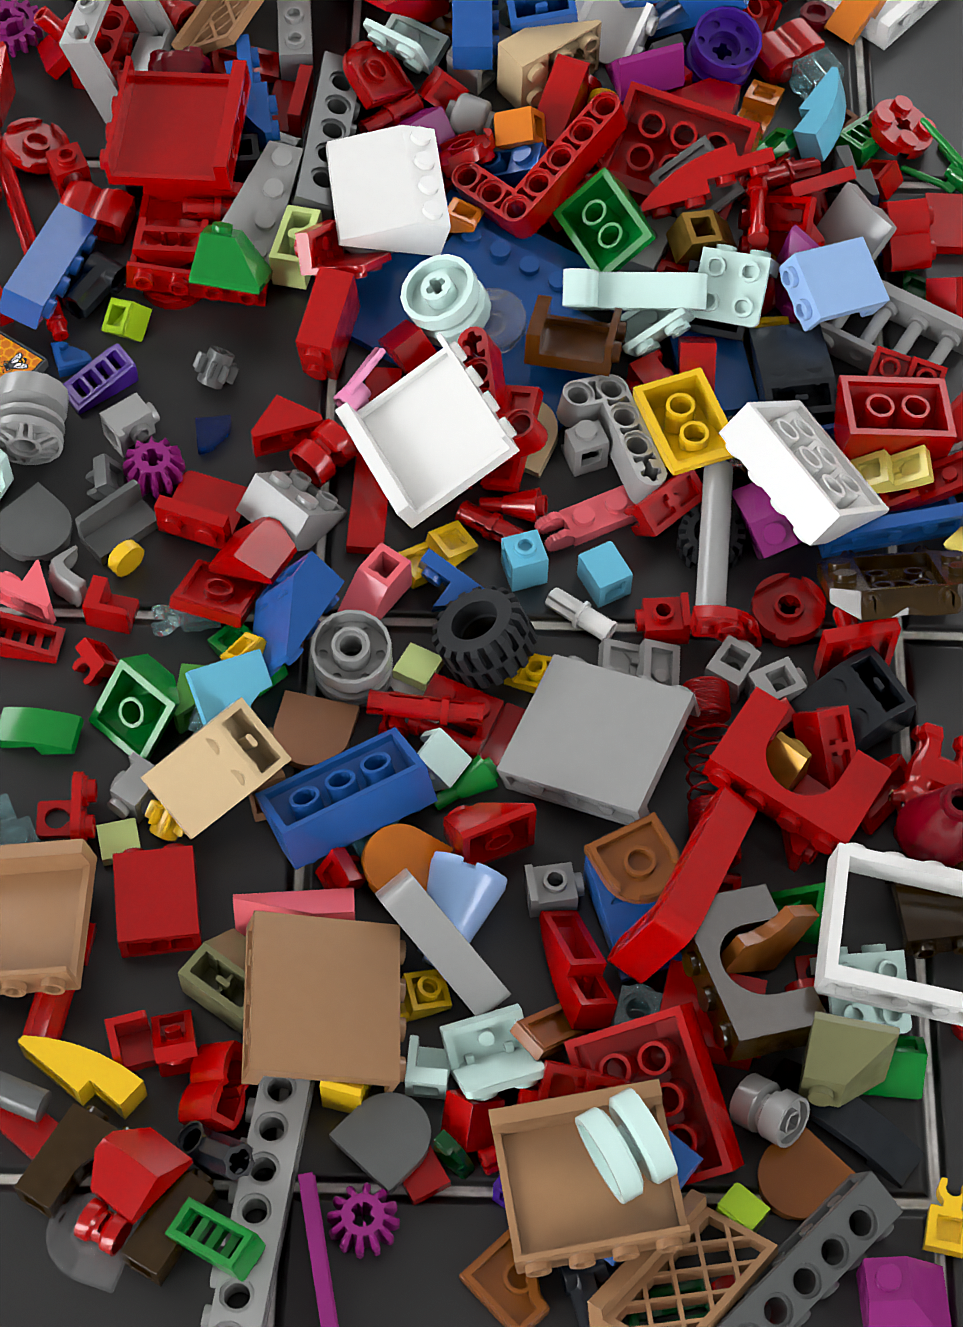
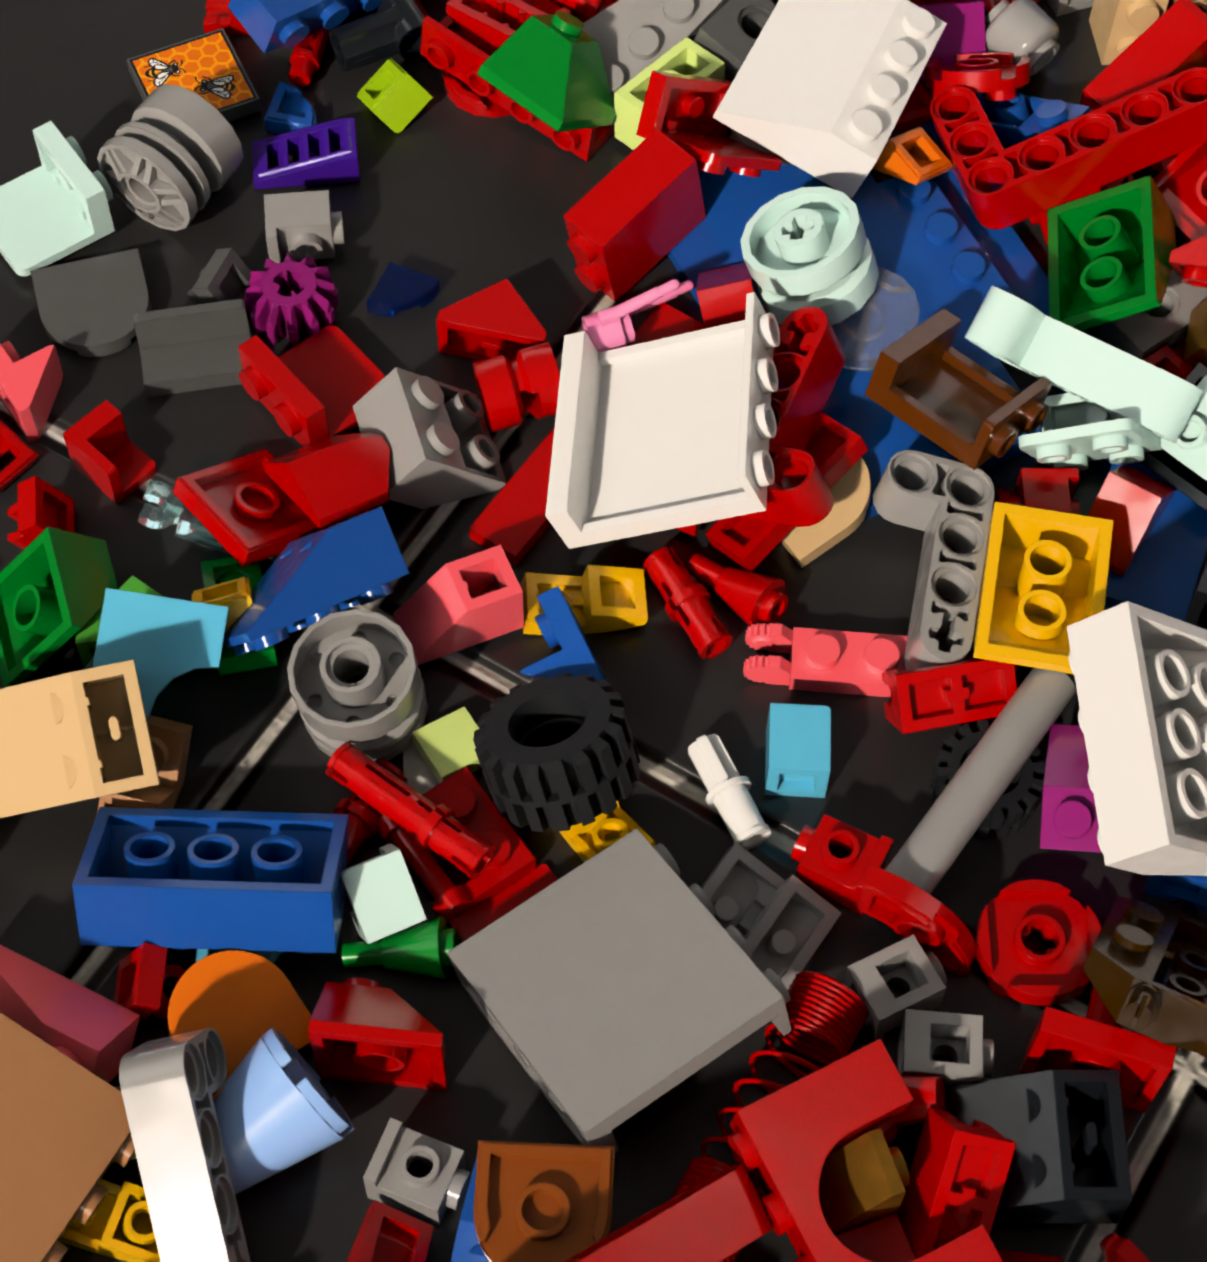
camera: 30 degrees right, 0 degrees up
(64, 581) = (80, 375): light grey hair -> none
(125, 558) = (173, 400): yellow tile -> none
(215, 367) = (459, 207): dark grey gear -> none
(313, 728) = (254, 758): nougat tile -> none
(519, 127) = (1070, 73): orange panel -> none
(524, 560) = (694, 672): medium azure brick -> none
(582, 439) = (890, 543): light grey brick -> none

